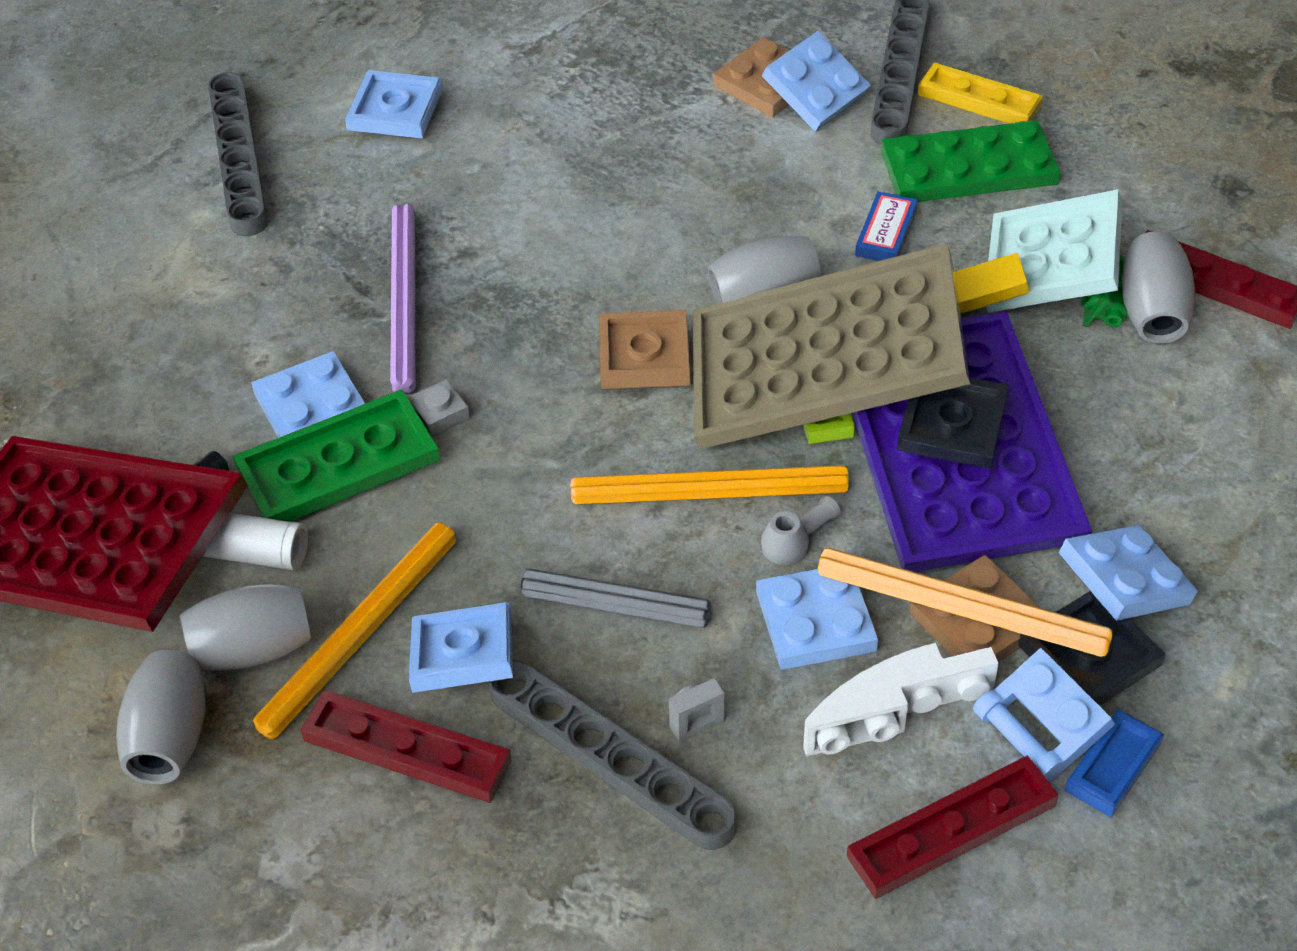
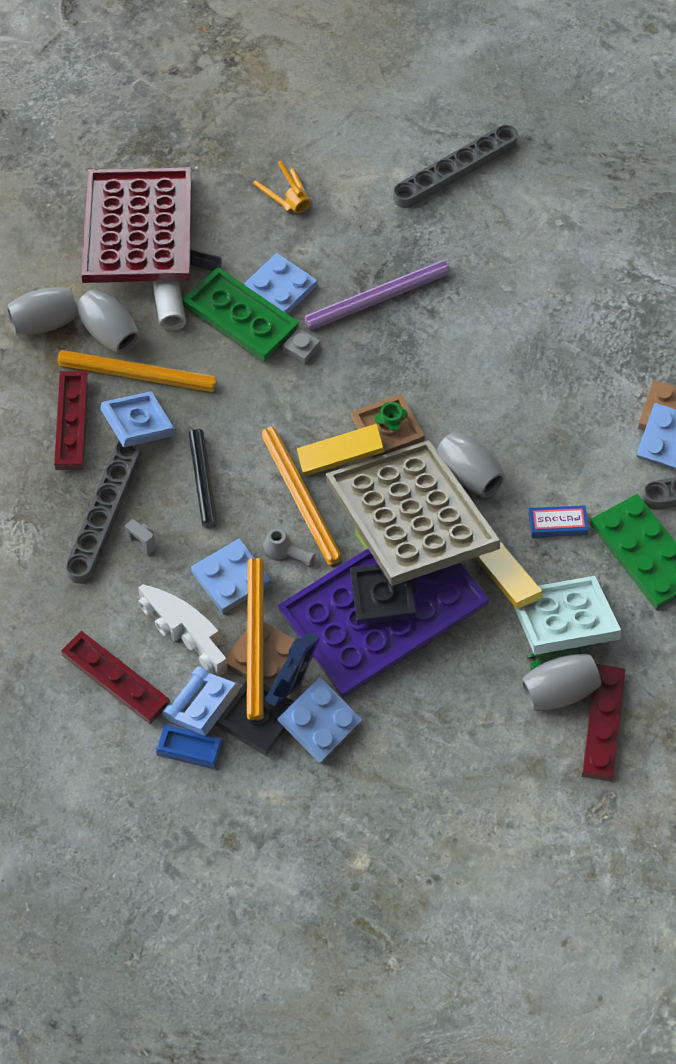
camera: 65 degrees right, 10 degrees up
(166, 328) = (296, 199): none -> light orange plant
(394, 104) = (535, 224): light blue plate -> none
(639, 327) = (391, 409): none -> green plate
(661, 409) = (340, 450): none -> yellow tile
(1045, 561) = (294, 669): none -> dark blue wing

